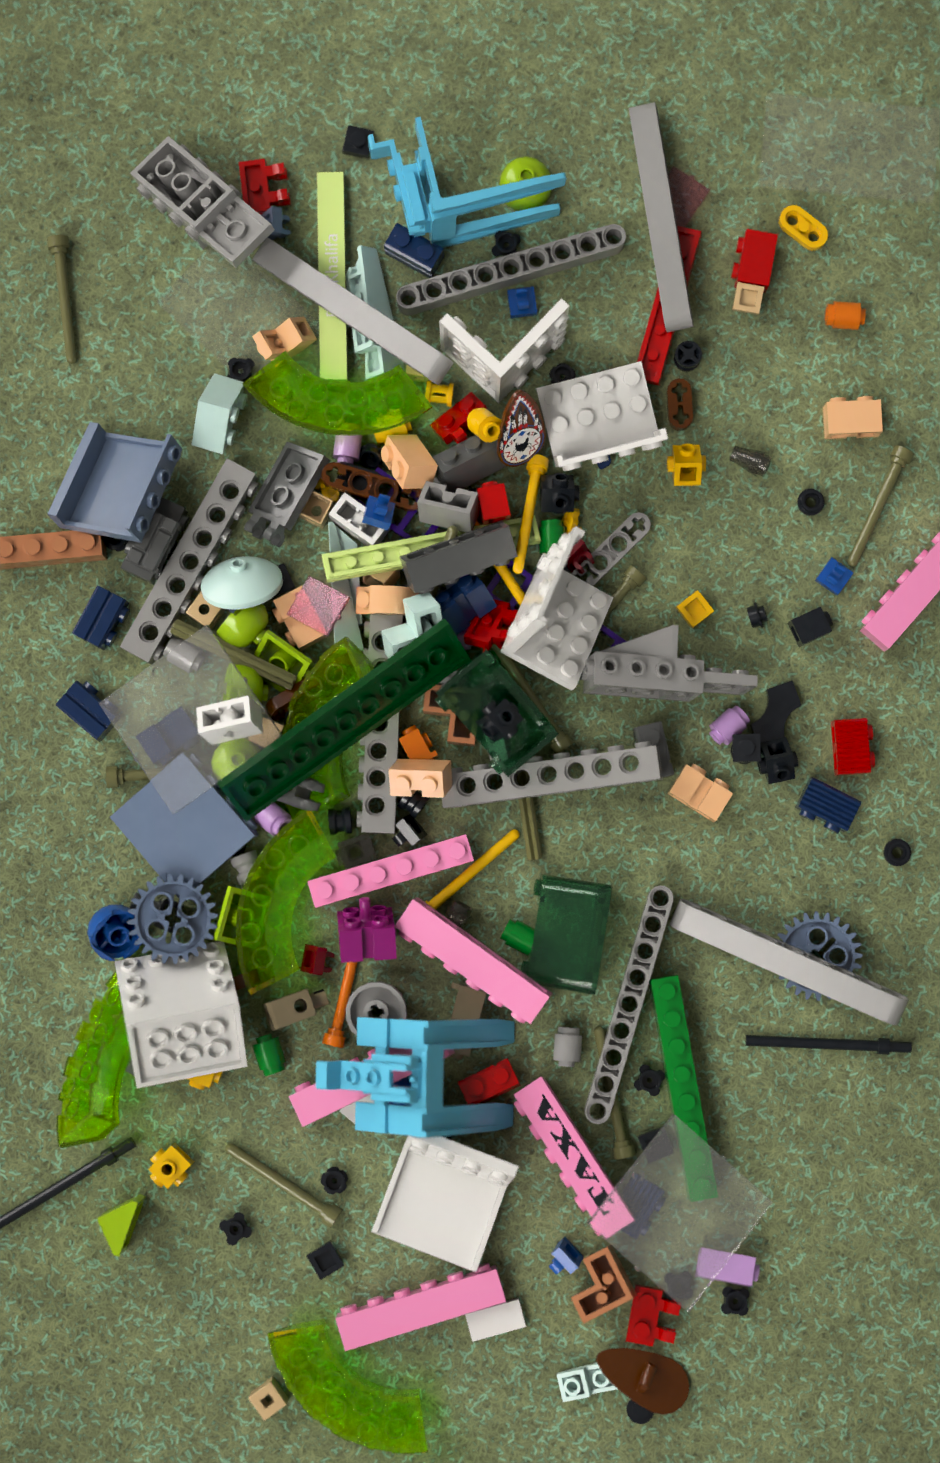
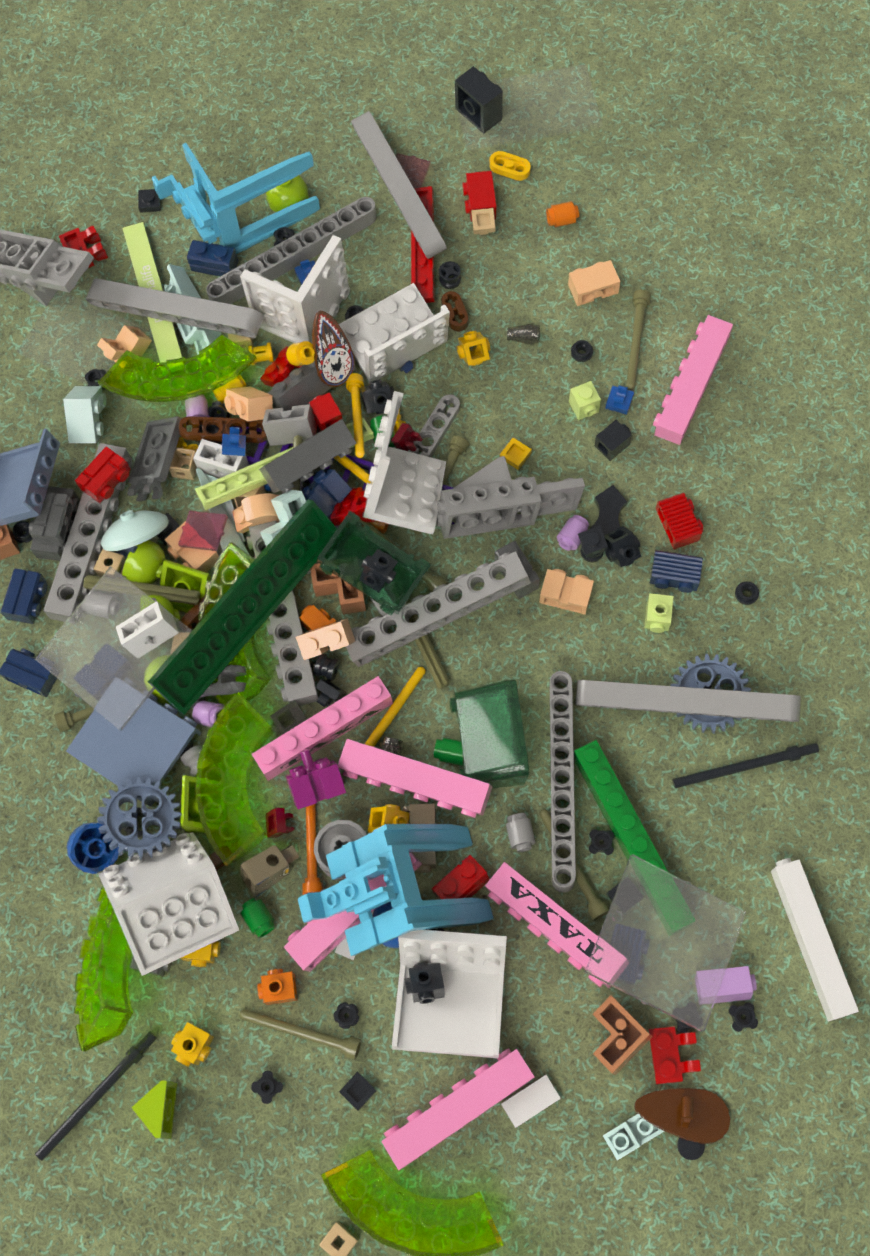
camera: 10 degrees left, 15 degrees down
(222, 505) = (103, 475): none -> red brick
(271, 1133) = (277, 987): none -> orange brick
(275, 217) = (98, 270): sand blue tile -> none
(340, 821) = (268, 700): black wheel -> none
(433, 1173) = (425, 983): none -> black brick
(437, 999) = (387, 815): none -> yellow brick
(565, 1257) = (577, 1021): blue tile -> none
(757, 615) = (567, 444): black plate -> none
(792, 131) = (478, 99): none -> black brick
(792, 848) = (658, 612): none -> yellowish green brick
(793, 569) = (584, 400): none -> yellowish green brick
(833, 1247) = (813, 939): none -> white brick

